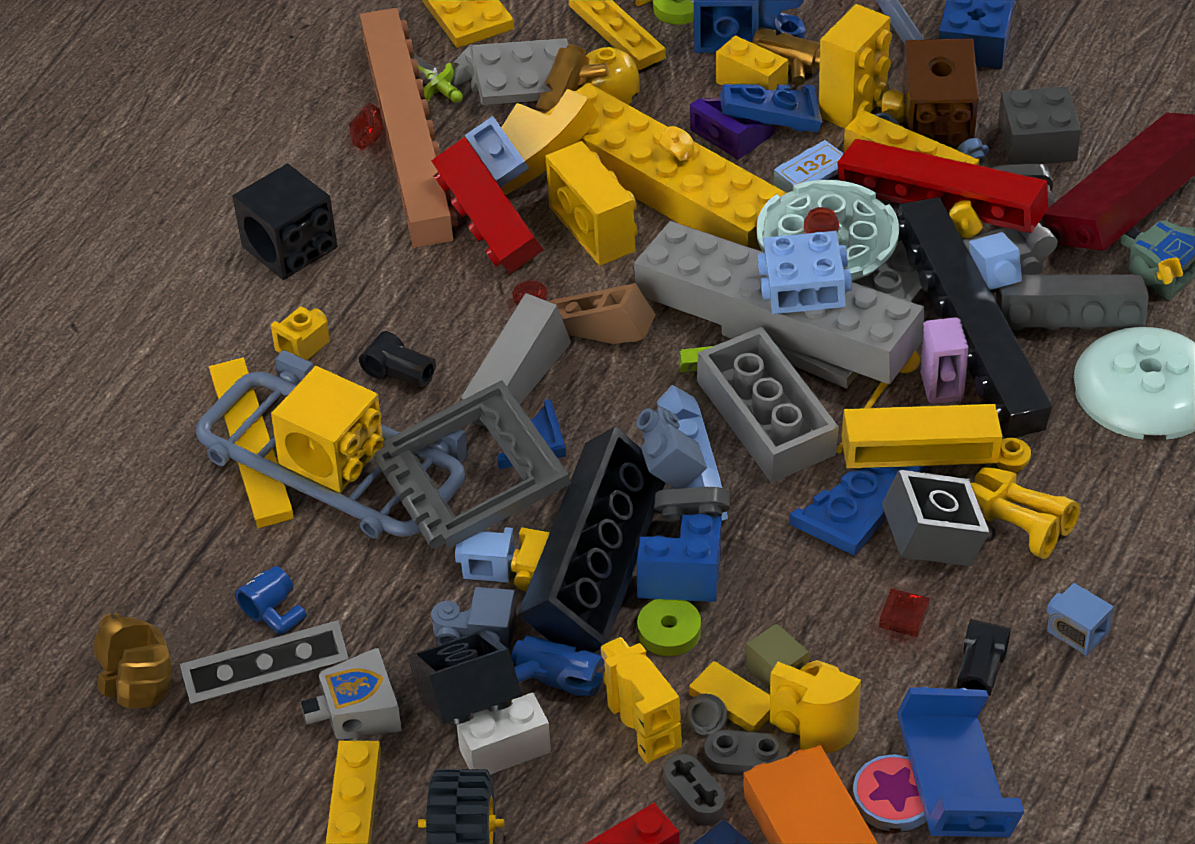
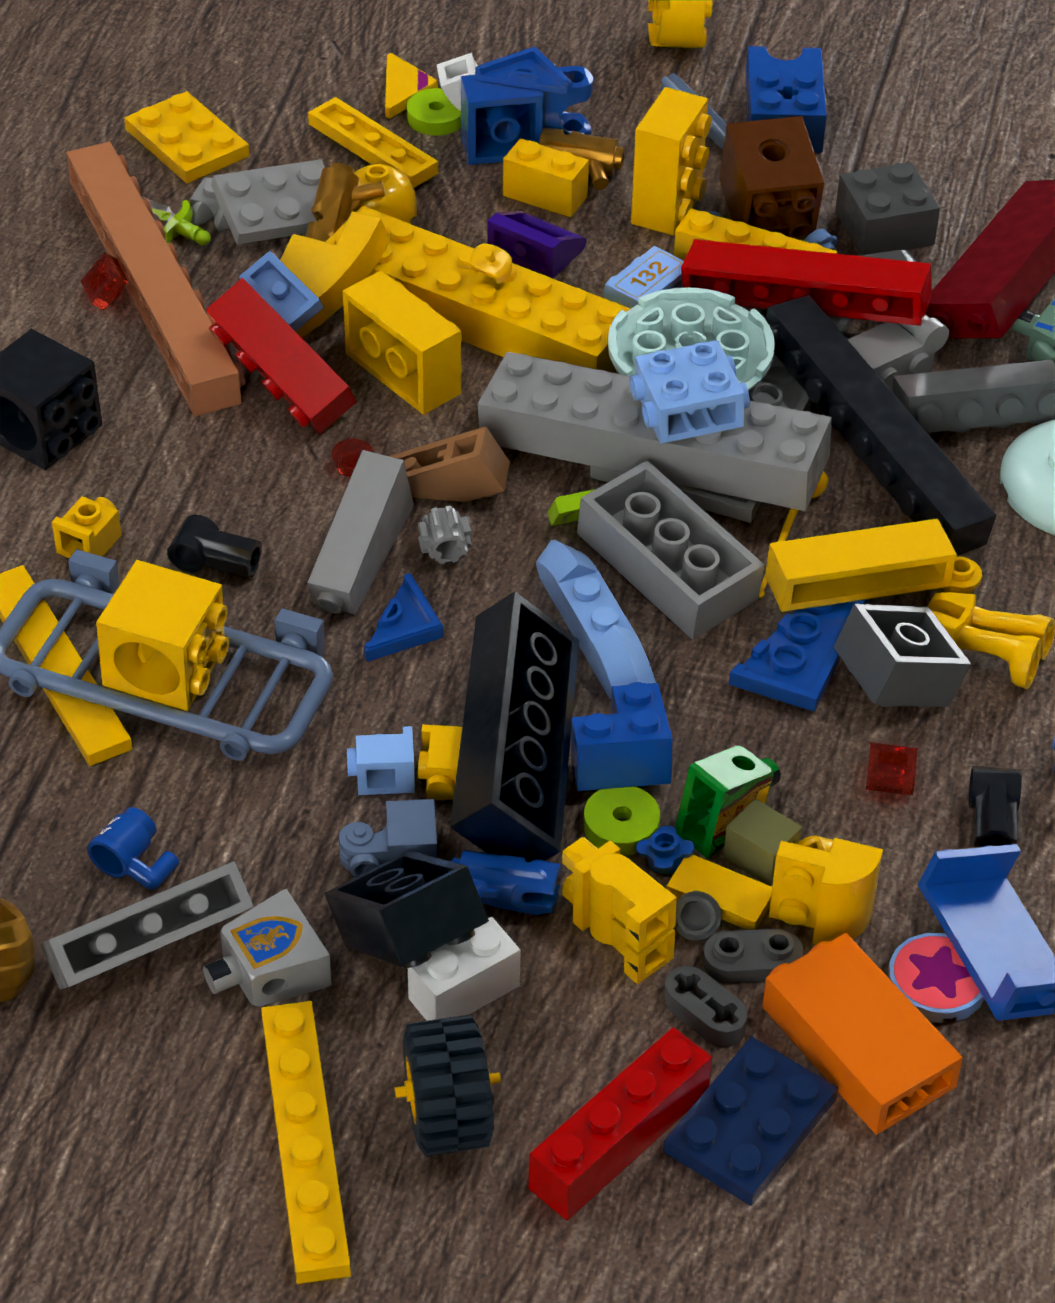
camera: 15 degrees left, 0 degrees up
(515, 435) = (390, 616): dark grey hinge -> none
(585, 370) = (445, 534): none -> light grey gear
(667, 450) = (578, 612): sand blue brick -> none
(691, 501) = (601, 673): dark grey plate -> none
(696, 656) = (665, 850): none -> blue plate
(750, 610) = (718, 792): none -> green torso
(780, 106) = (582, 215): blue wing -> none
(821, 220) = (685, 332): clear red plate -> none
(893, 104) = (717, 199): yellow piece -> none
(944, 360) = (860, 477): lavender brick -> none
(965, 219) = (844, 316): yellow piece -> none
(996, 260) = (894, 357): light blue brick -> none

